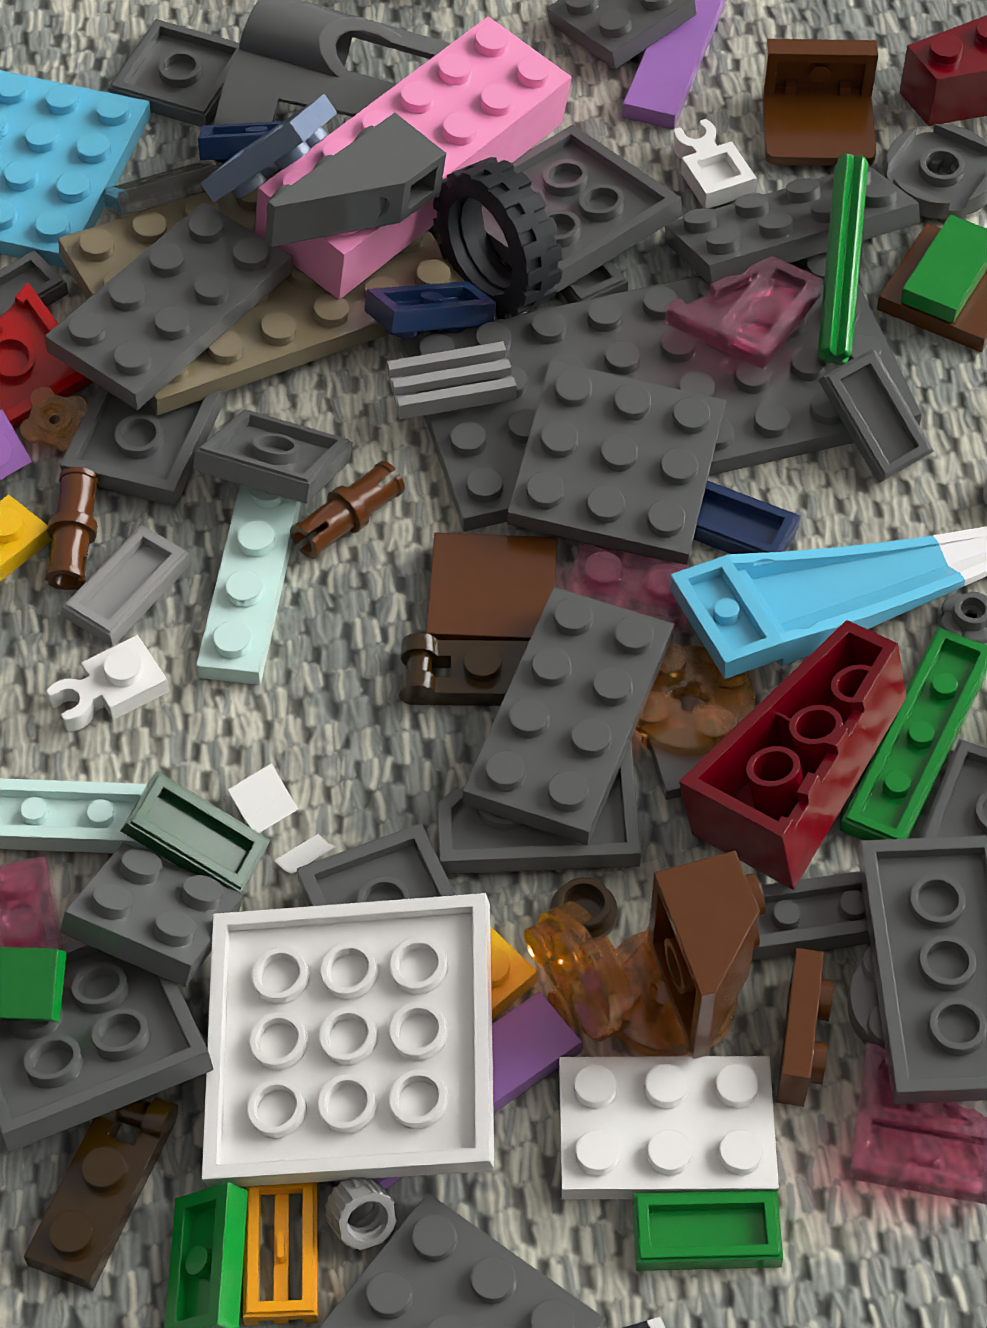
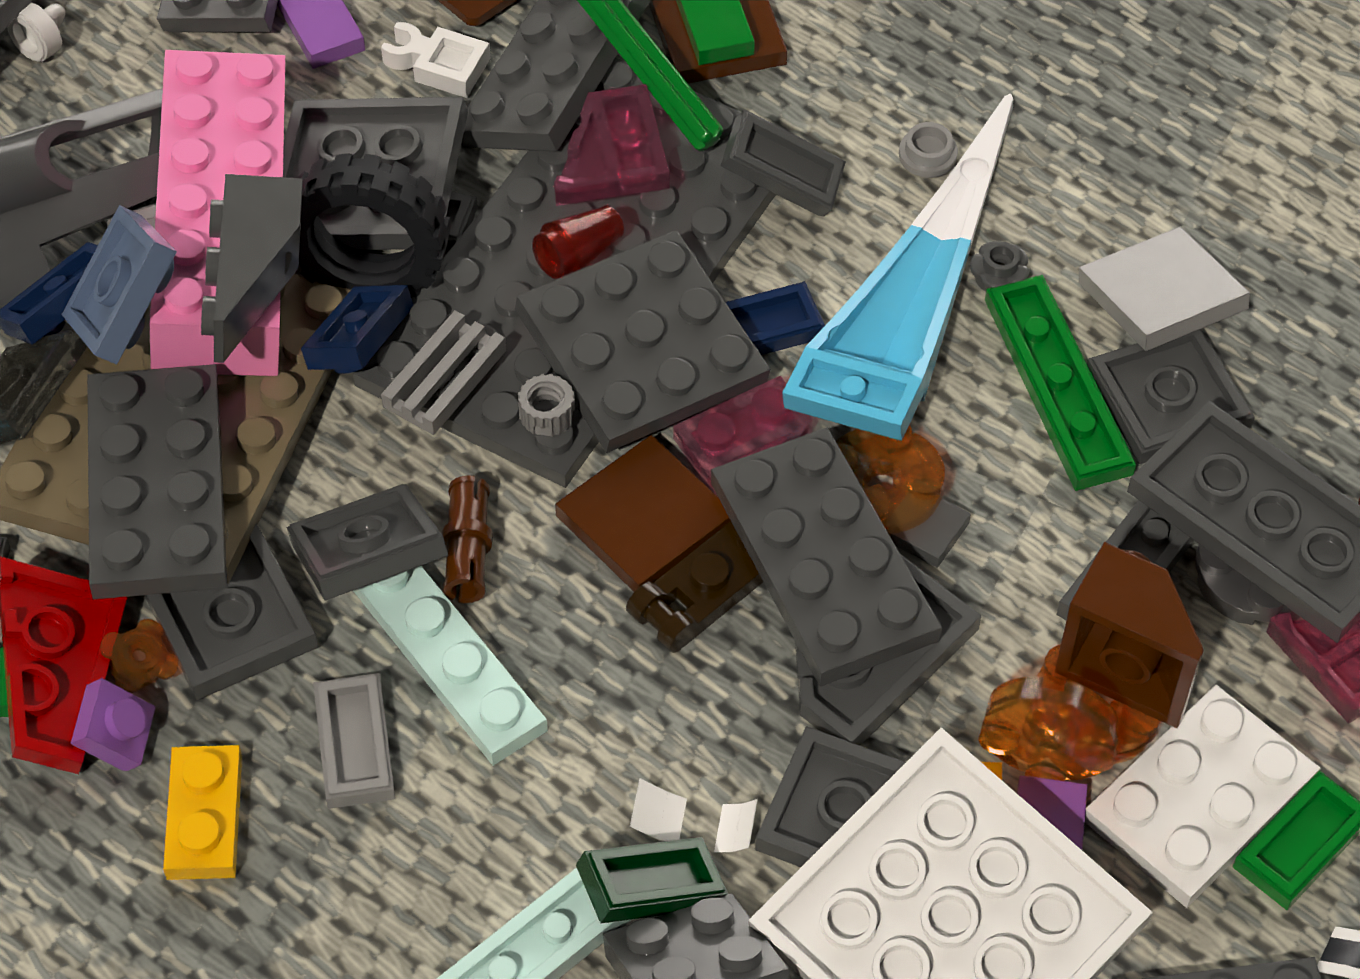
camera: 45 degrees left, 0 degrees up
(72, 528) = (260, 731): reddish brown pin -> none
(114, 680) = (435, 819): white plate -> none
(497, 470) = (546, 388): none -> light grey axle
(594, 899) = (971, 689): dark brown plate -> none
(647, 355) = (576, 240): none -> clear red cone
(797, 755) = (1018, 471): dark red wedge -> none
(808, 1001) = (1228, 657): reddish brown plate -> none

